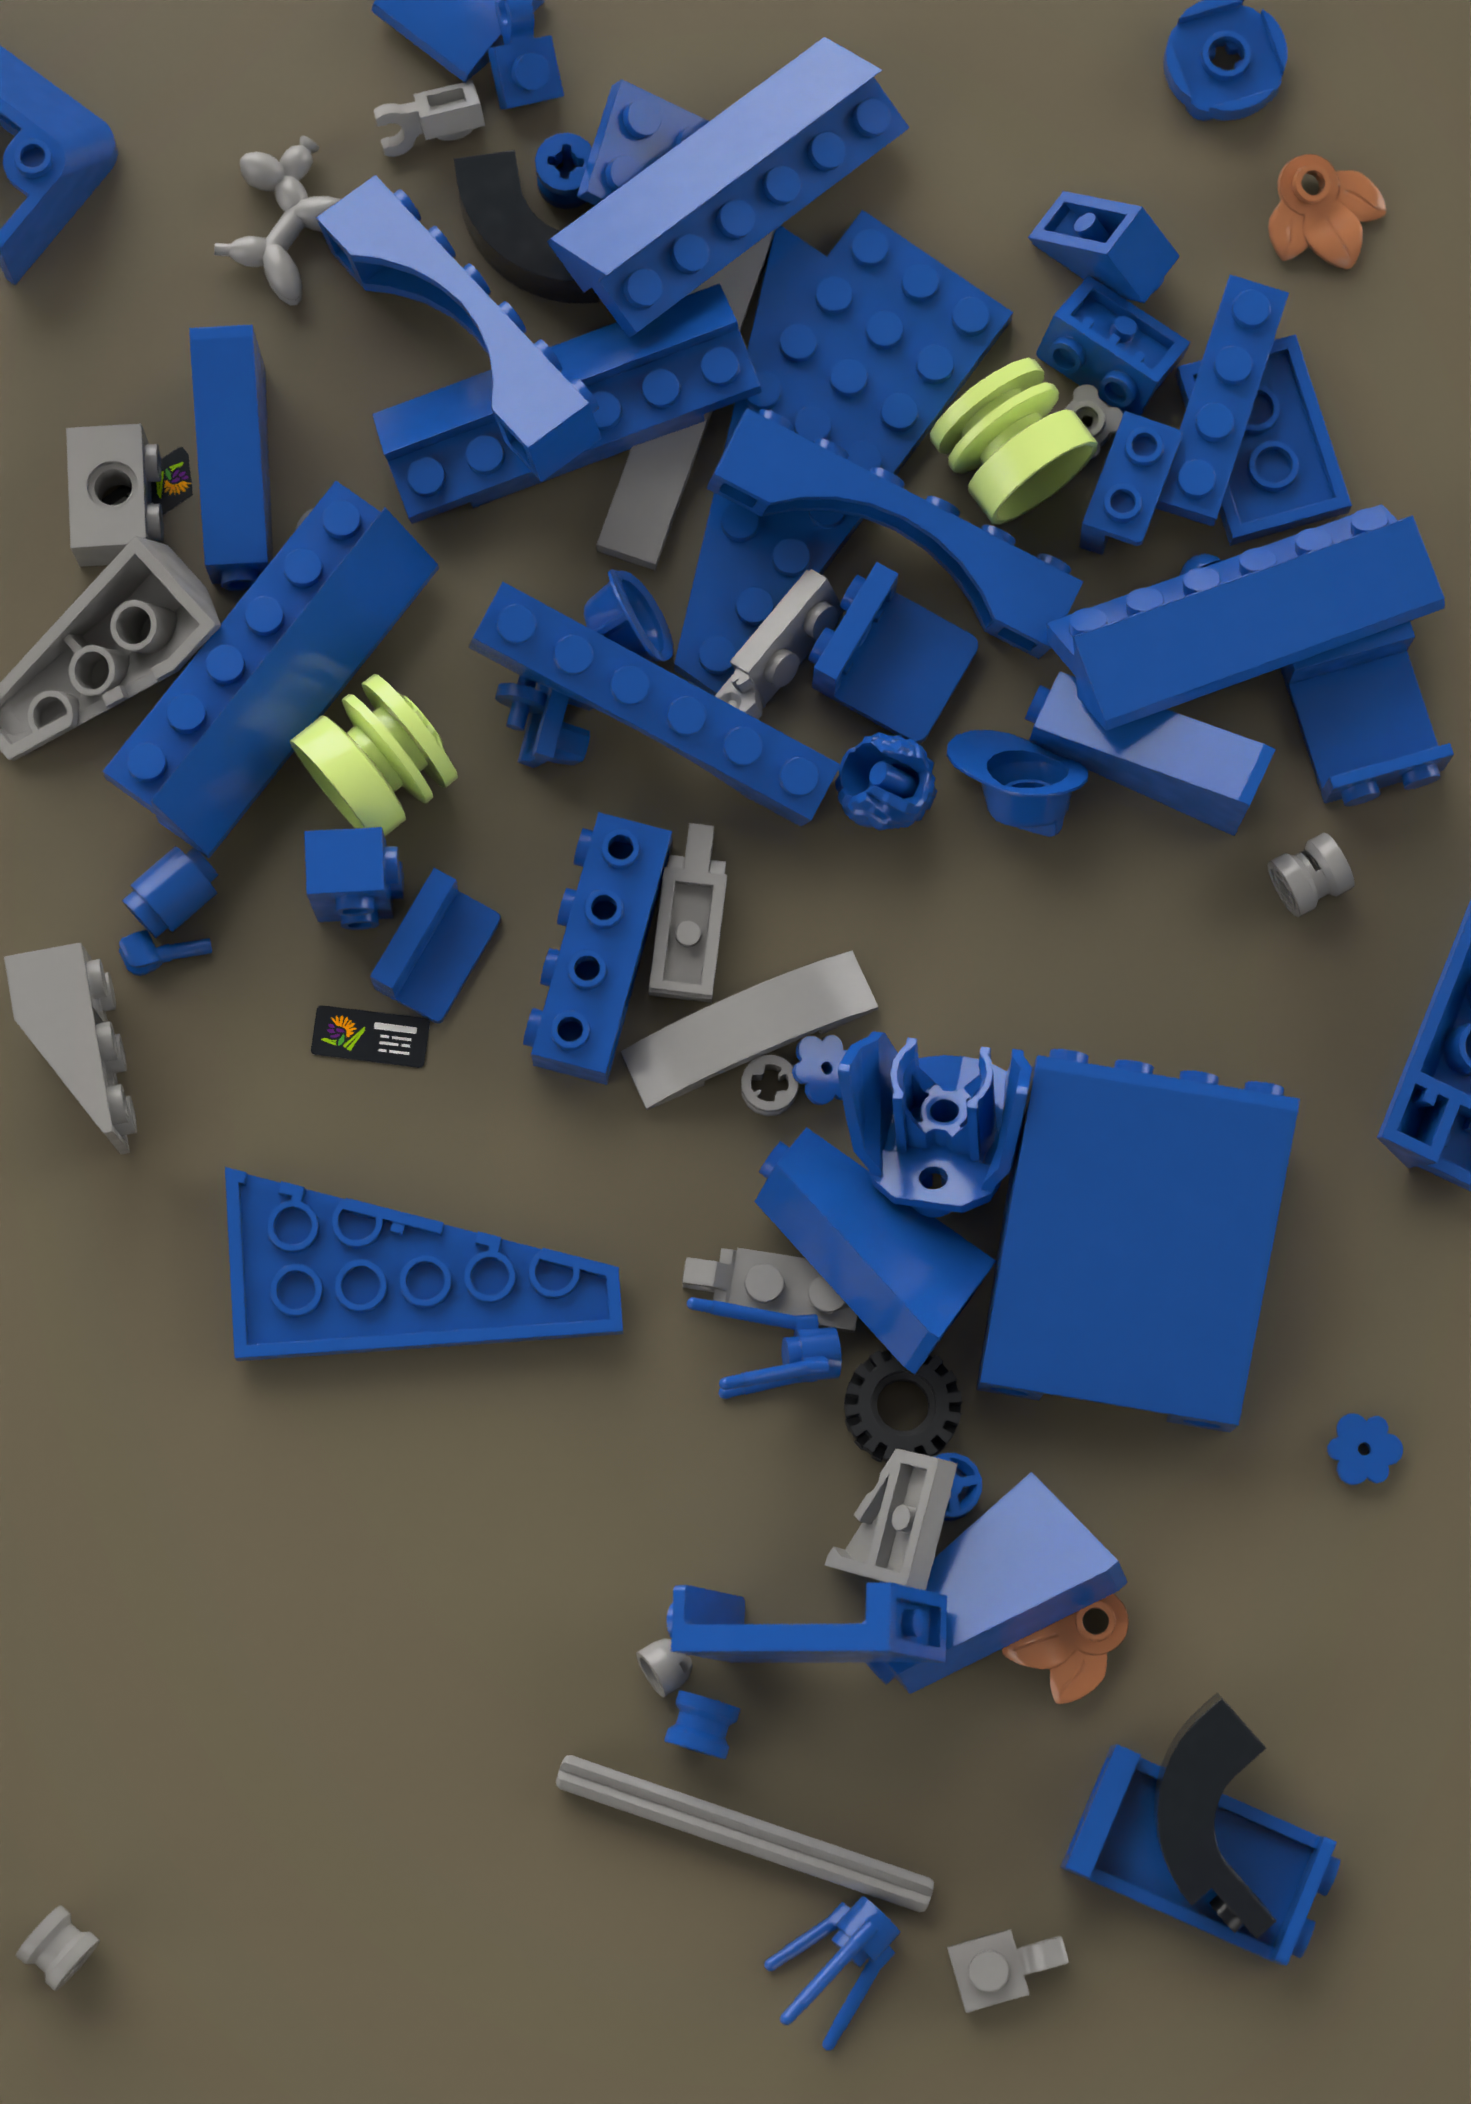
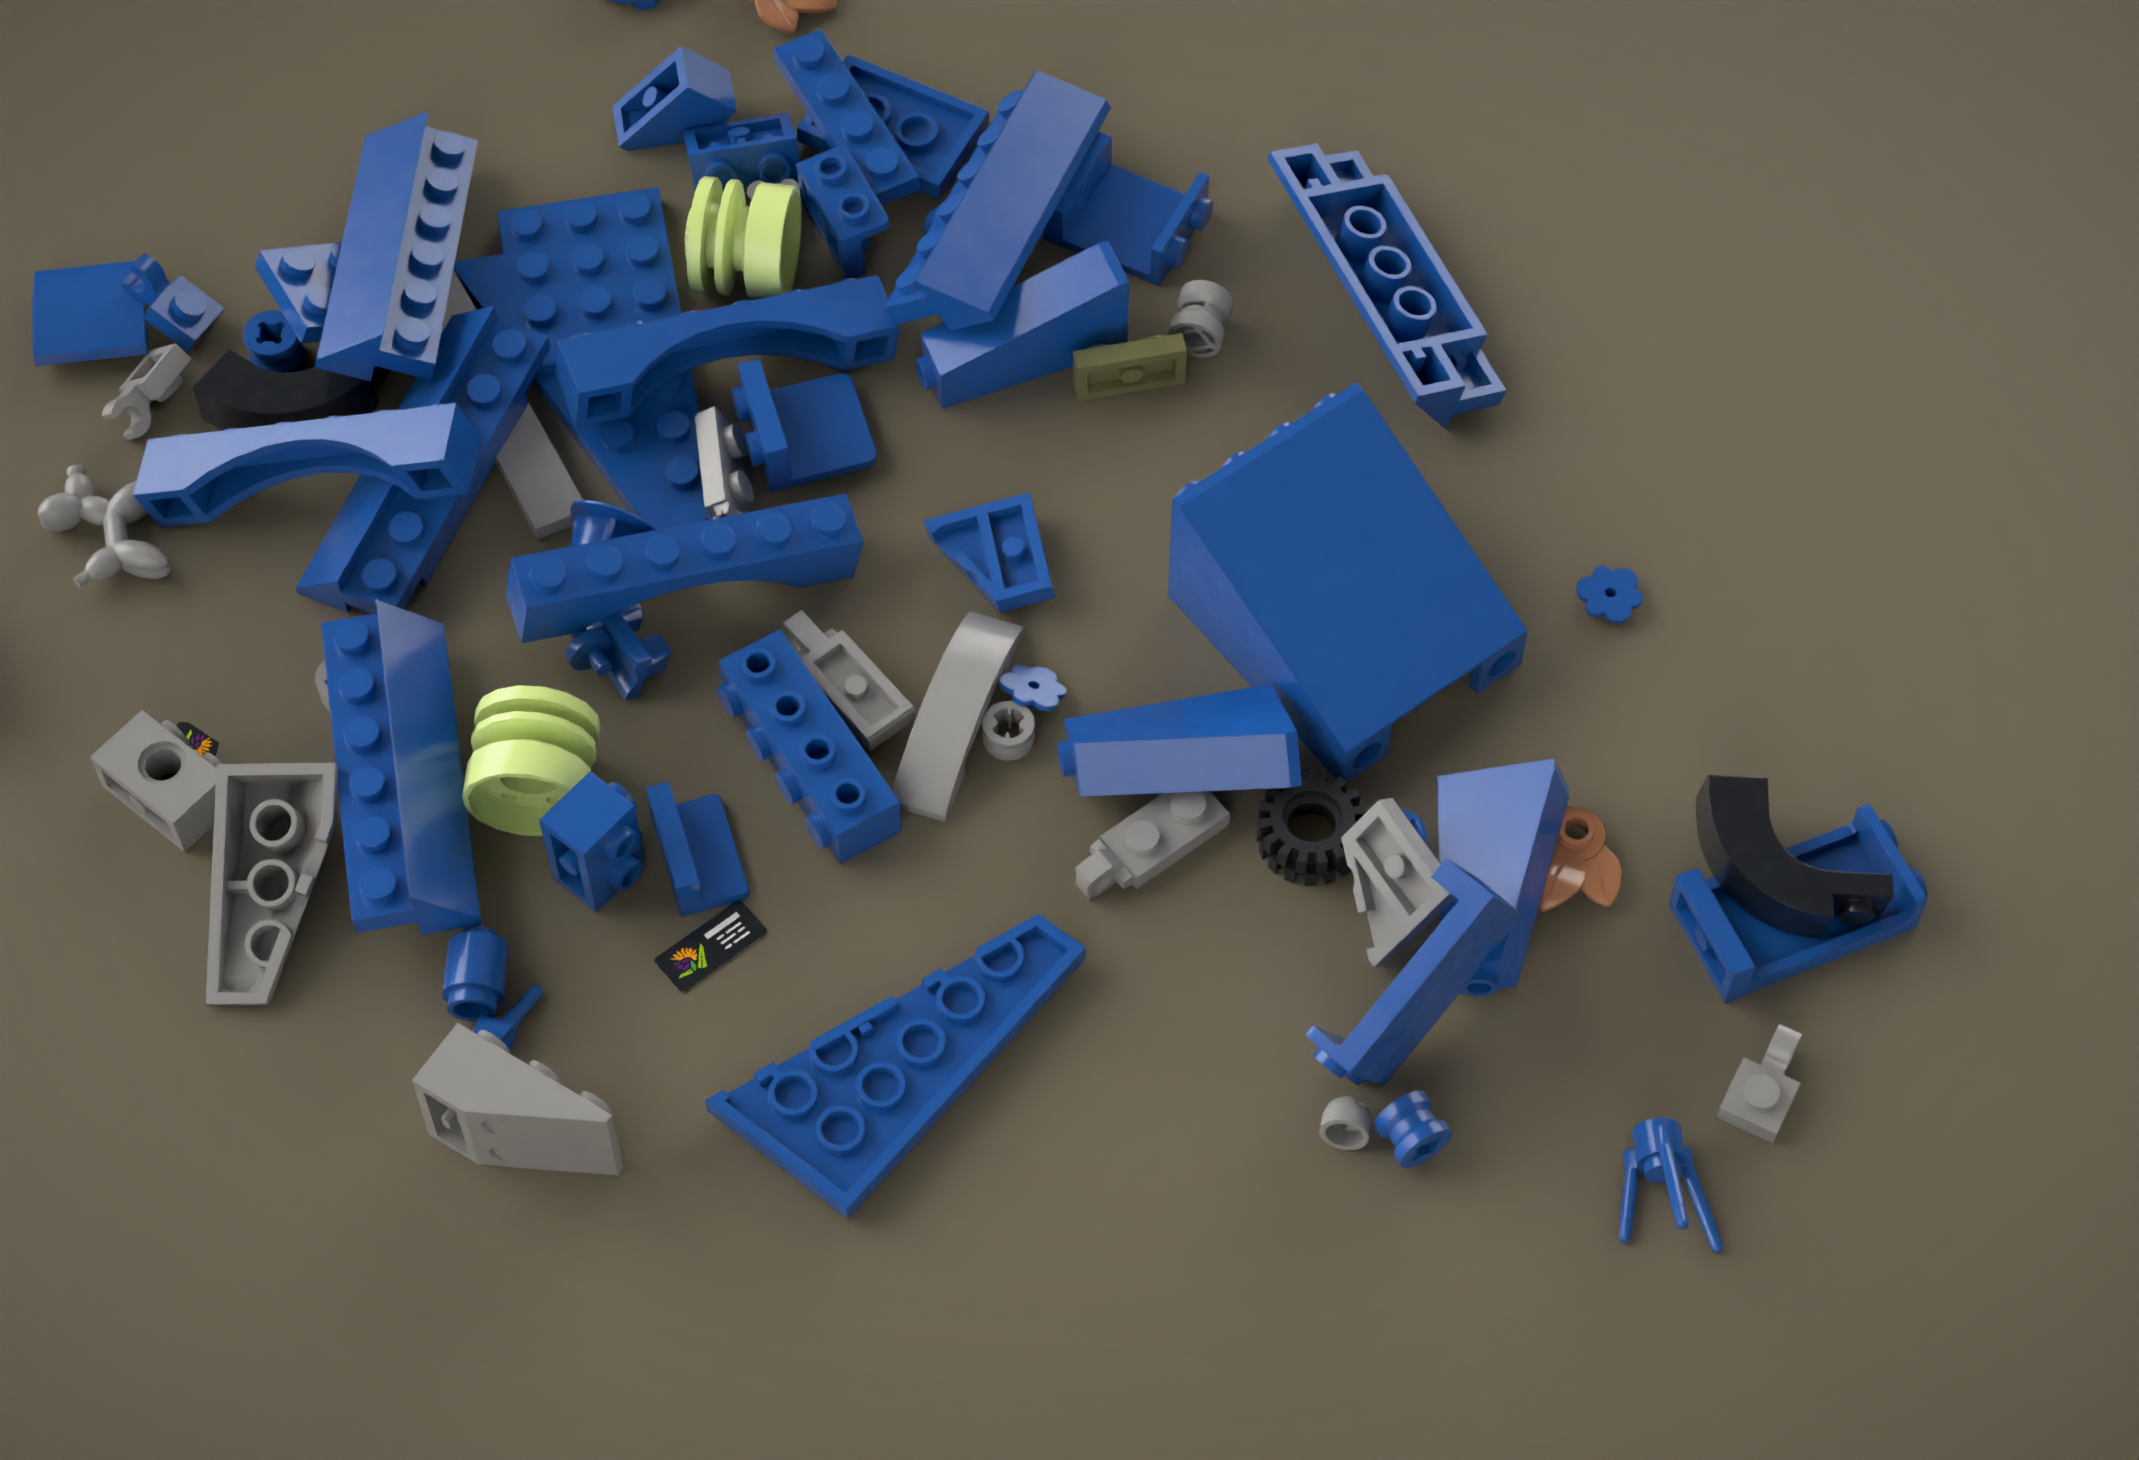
camera: 45 degrees left, 20 degrees down
(232, 453) = (224, 673): blue slope -> none
(745, 1833) = (1511, 1173): light grey axle -> none
(806, 1356) = (1215, 853): blue plant -> none
(886, 782) = (884, 488): blue piece -> none
(926, 923) = (997, 550): none -> blue wing
(933, 1118) = (1163, 623): blue piece -> none
(1018, 778) = (969, 425): blue piece -> none
(1185, 846) = (1129, 366): none -> olive plate

